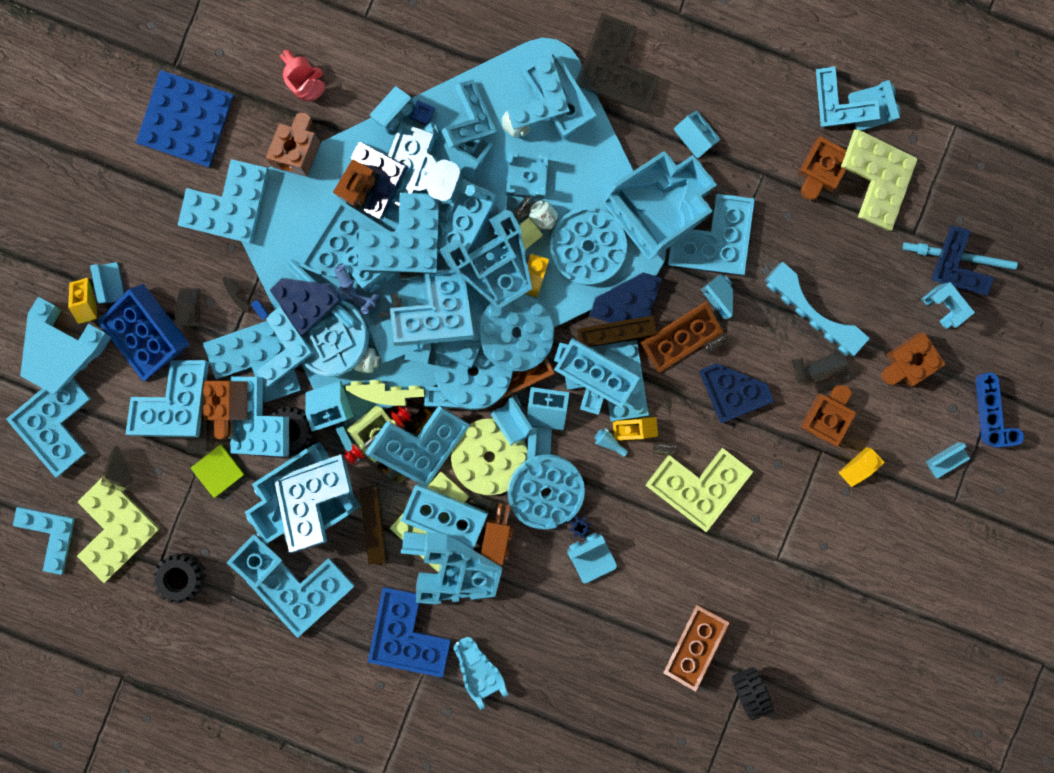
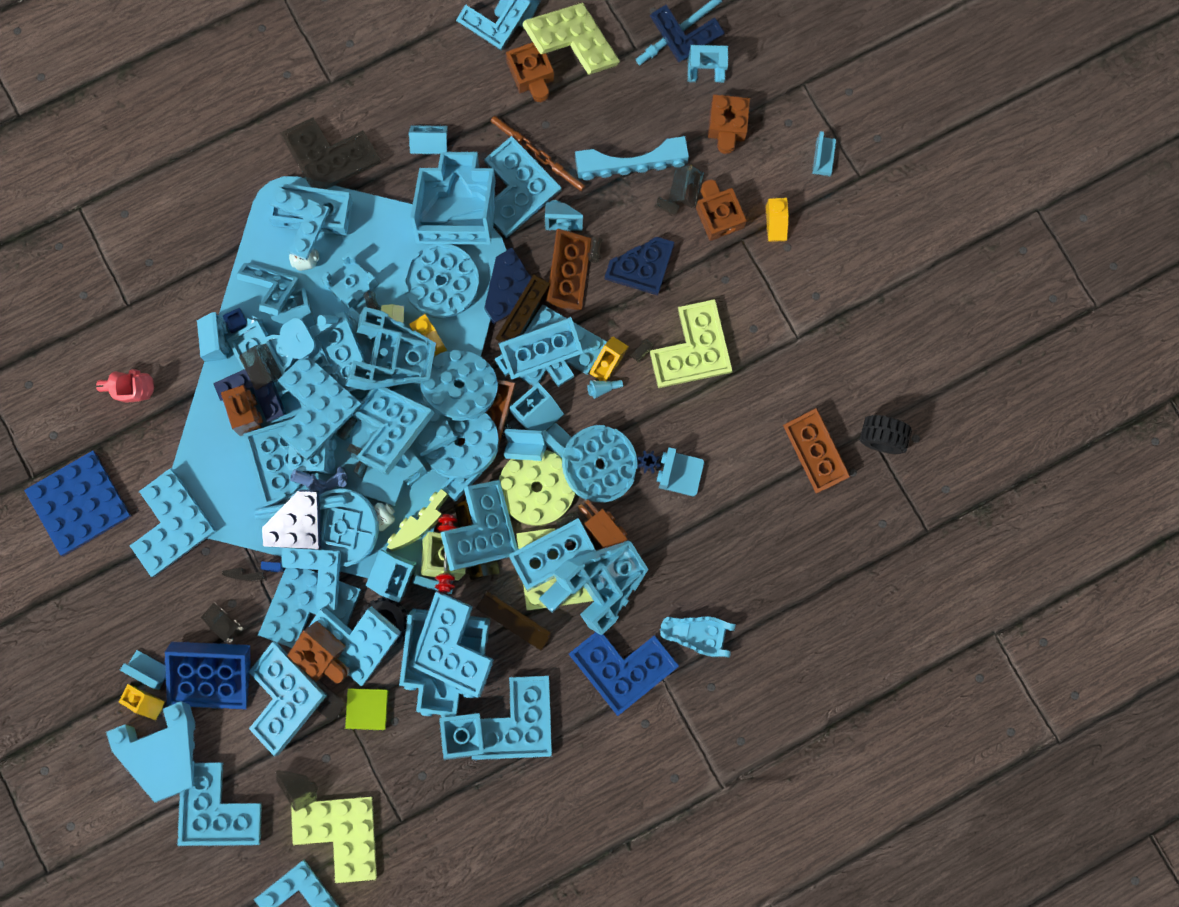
camera: 55 degrees left, 10 degrees down
(164, 584) = (405, 812): black tyre -> none
(301, 146) = (173, 435): dark orange brick -> none
(400, 169) = (260, 366): none -> clear smoke panel
(543, 215) = (389, 293): light aqua head -> none
(758, 257) = (556, 167): none -> dark orange piece
(995, 408) = (813, 92): blue beam -> none

